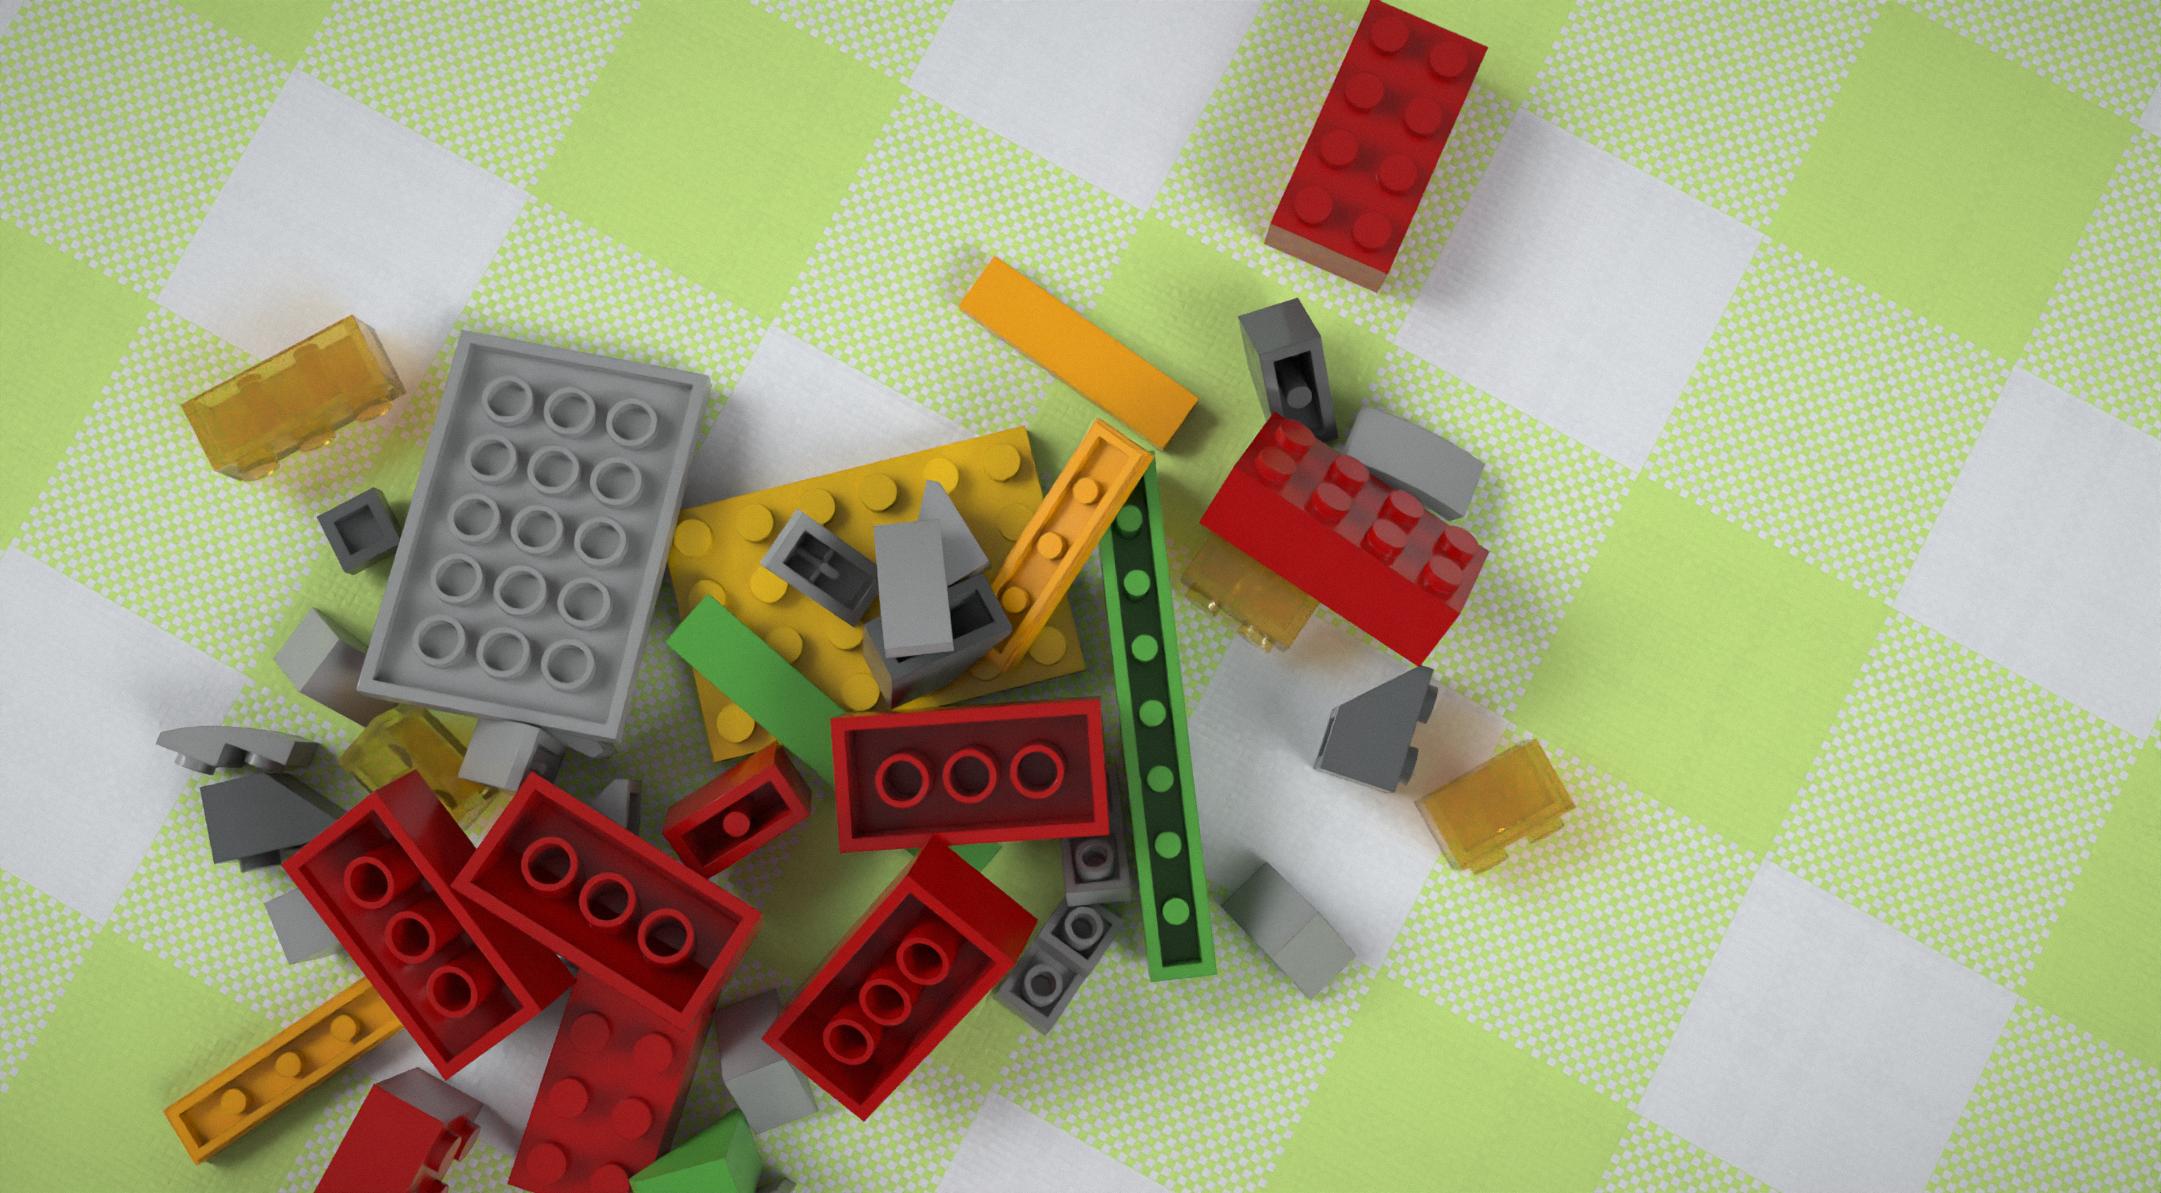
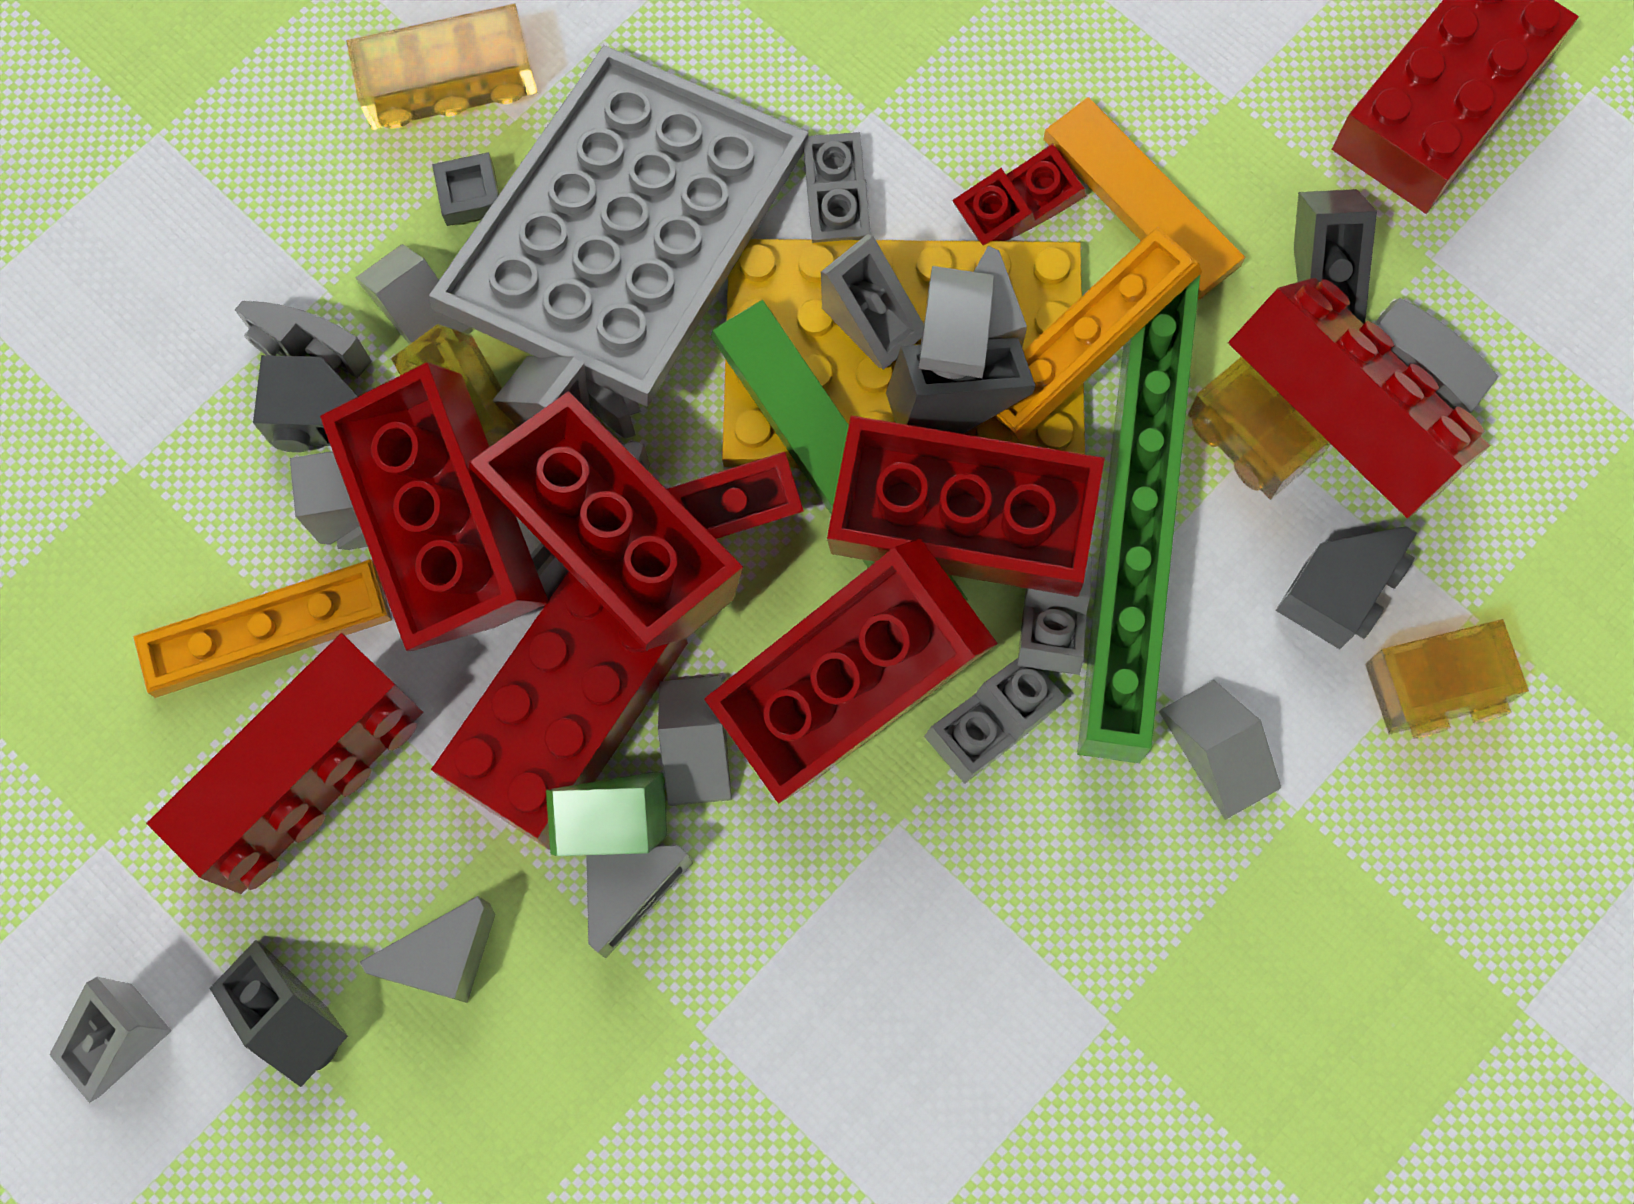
camera: 15 degrees right, 10 degrees down
(755, 428) = (836, 187): none -> light grey slope
(949, 389) = (1020, 200): none -> red slope

